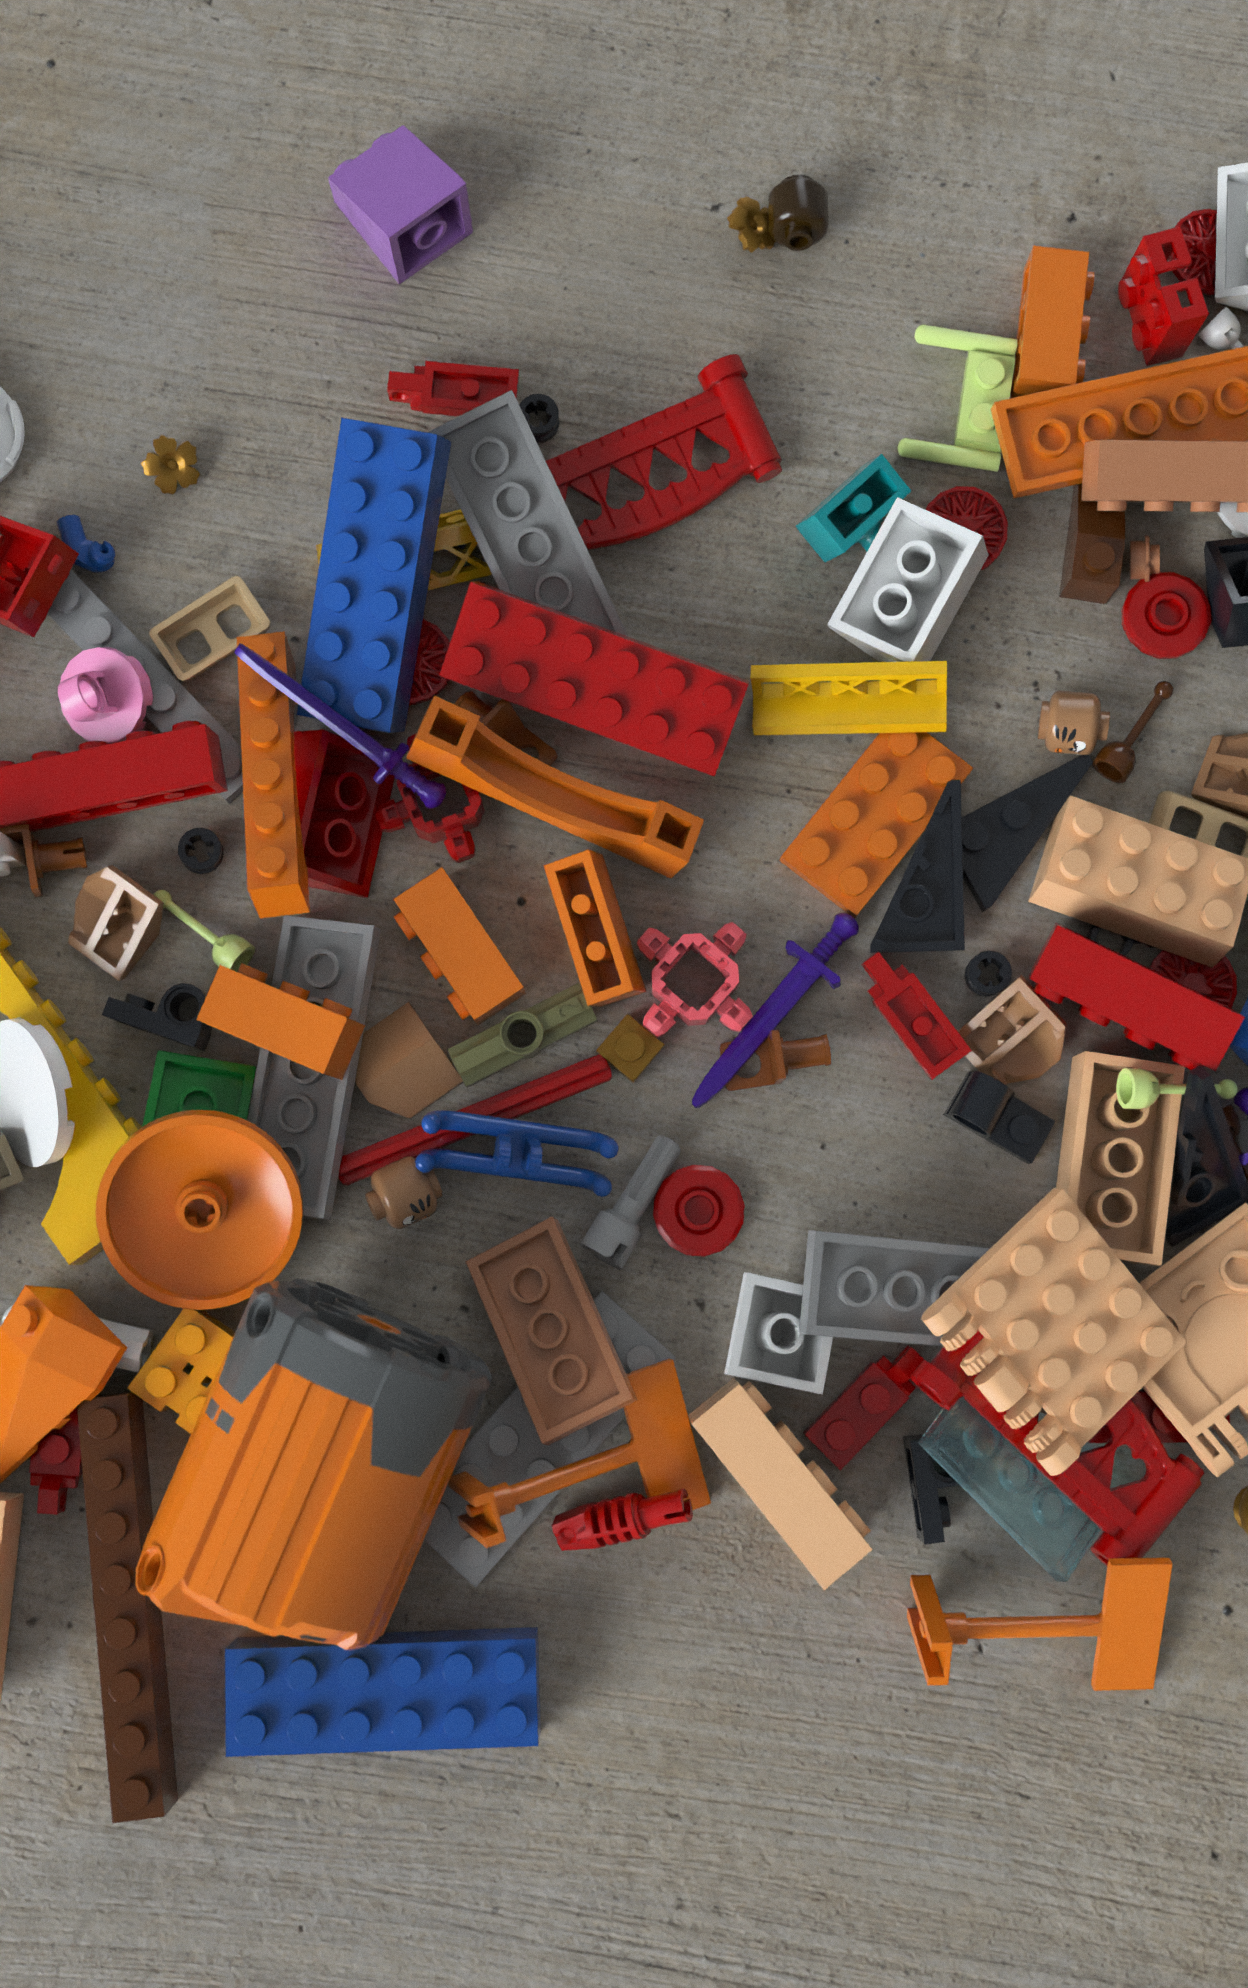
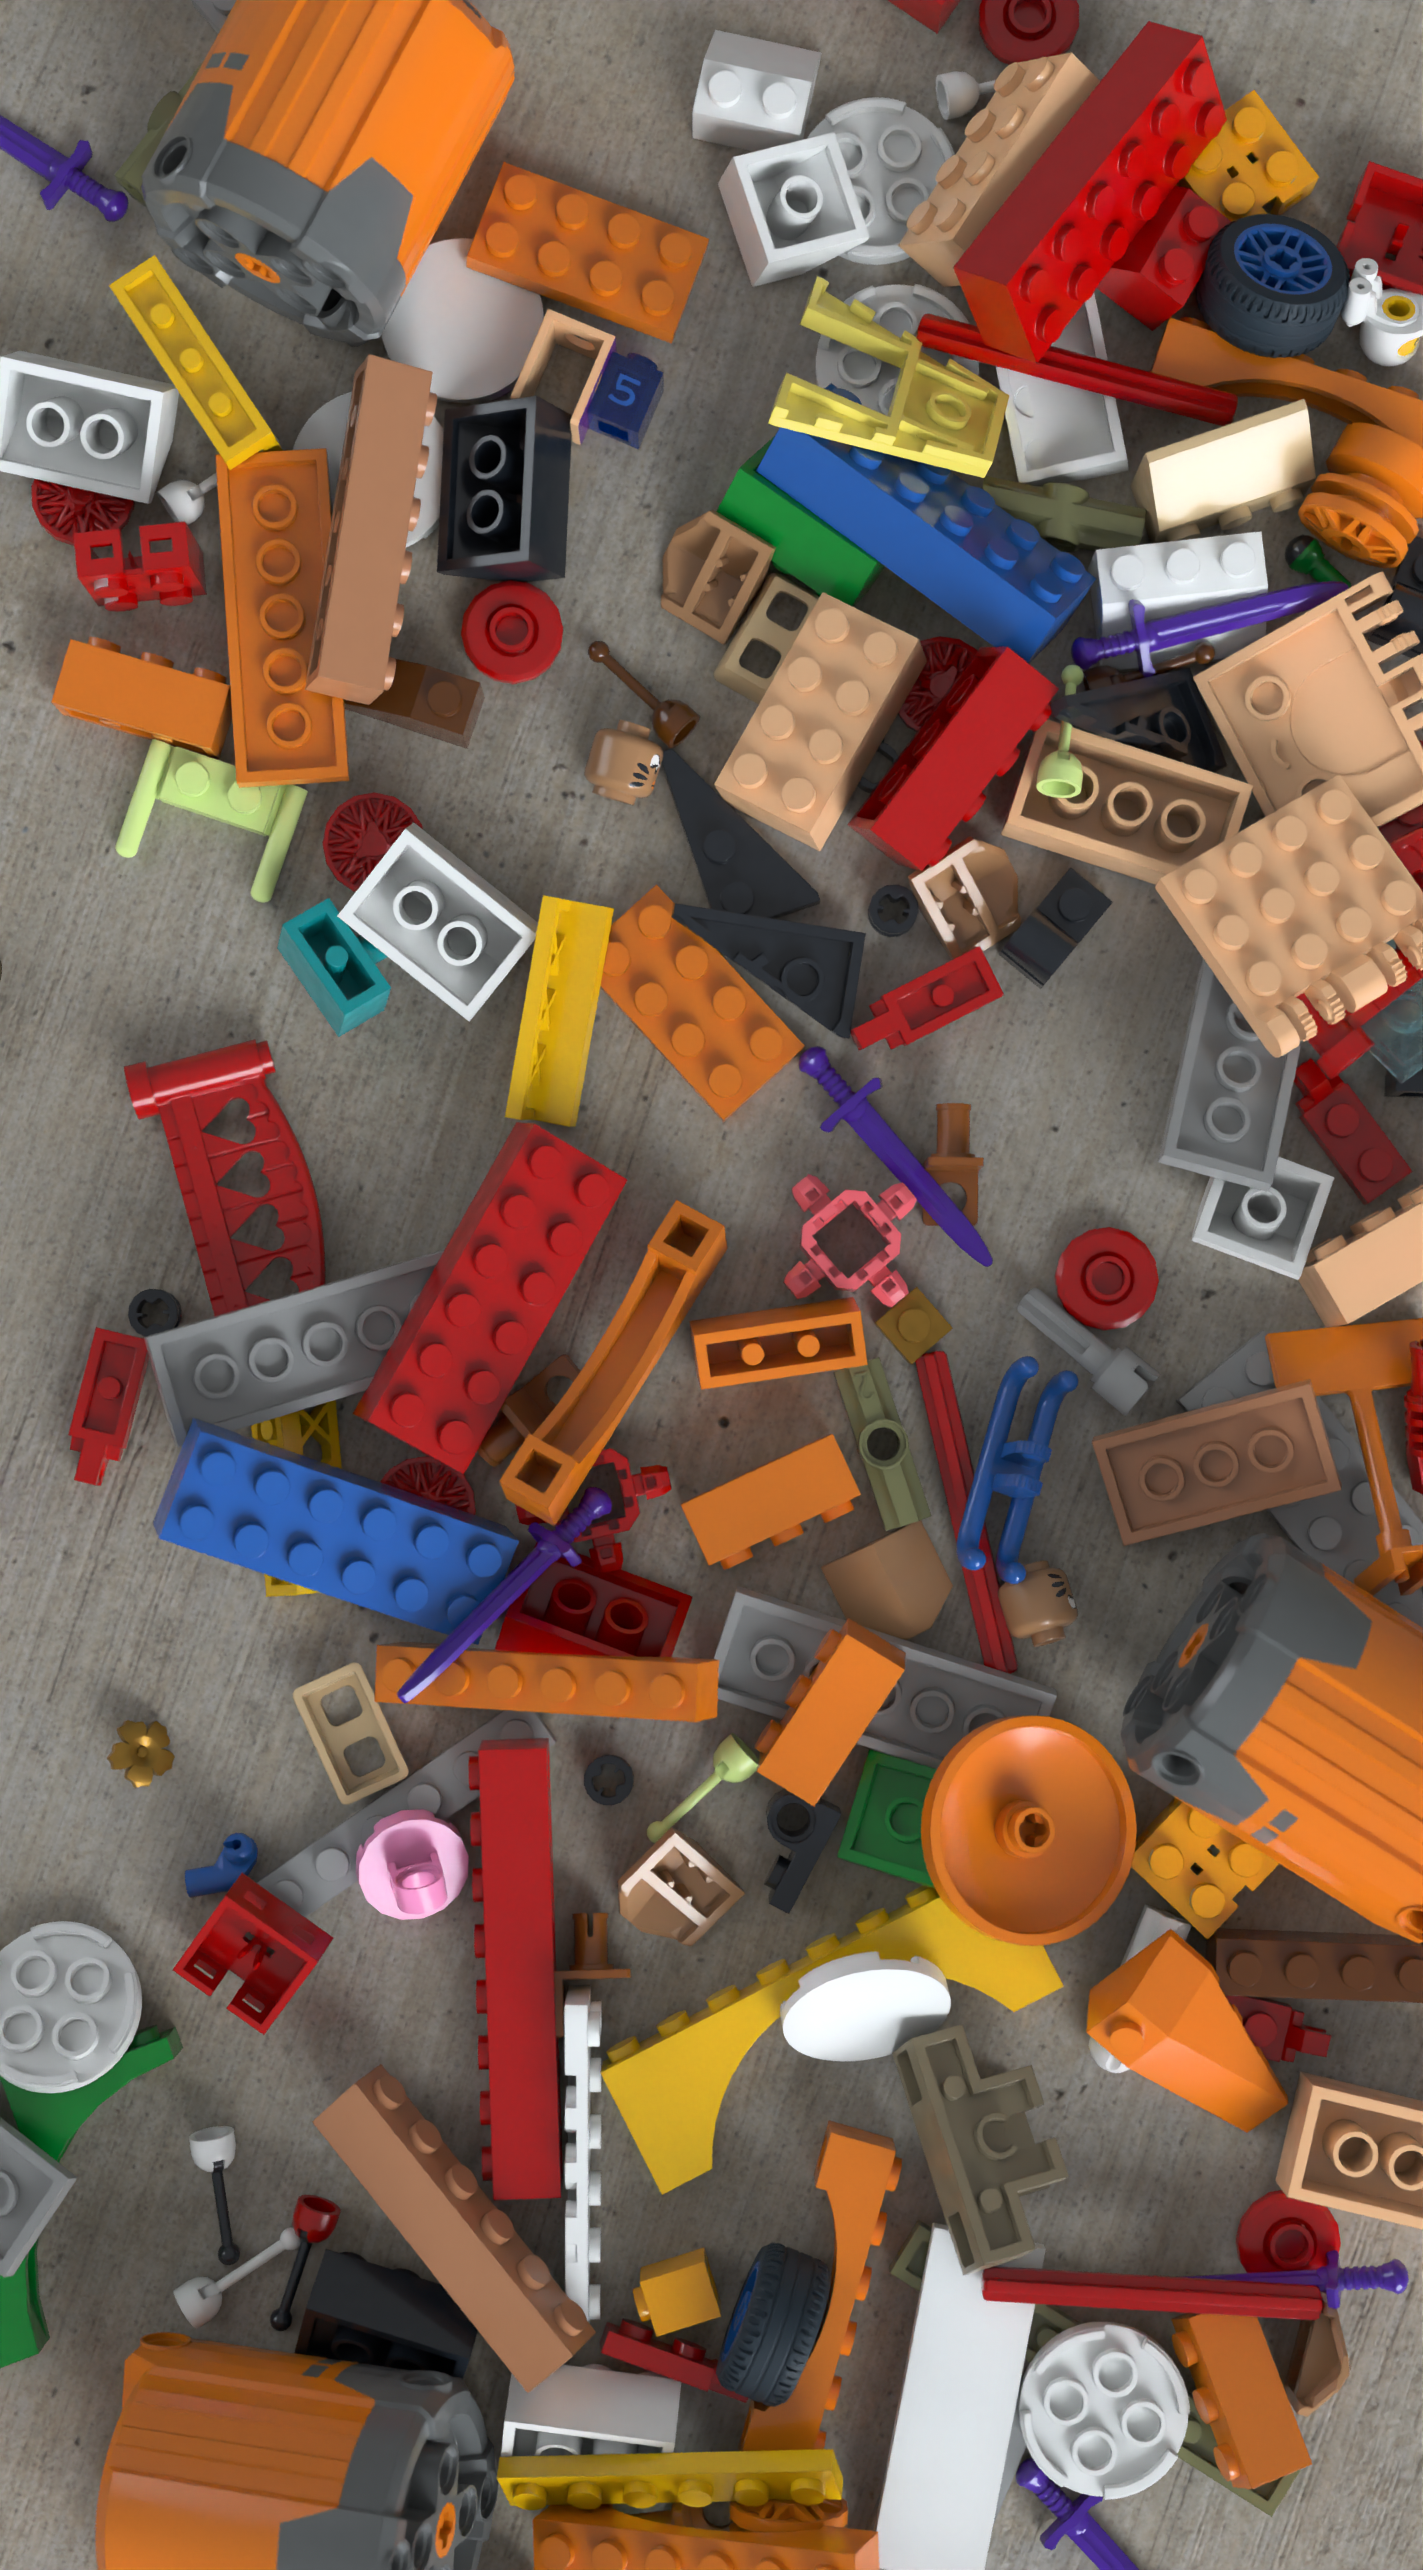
camera: 85 degrees left, 5 degrees up
(1144, 559) = (444, 645): nougat plate -> none

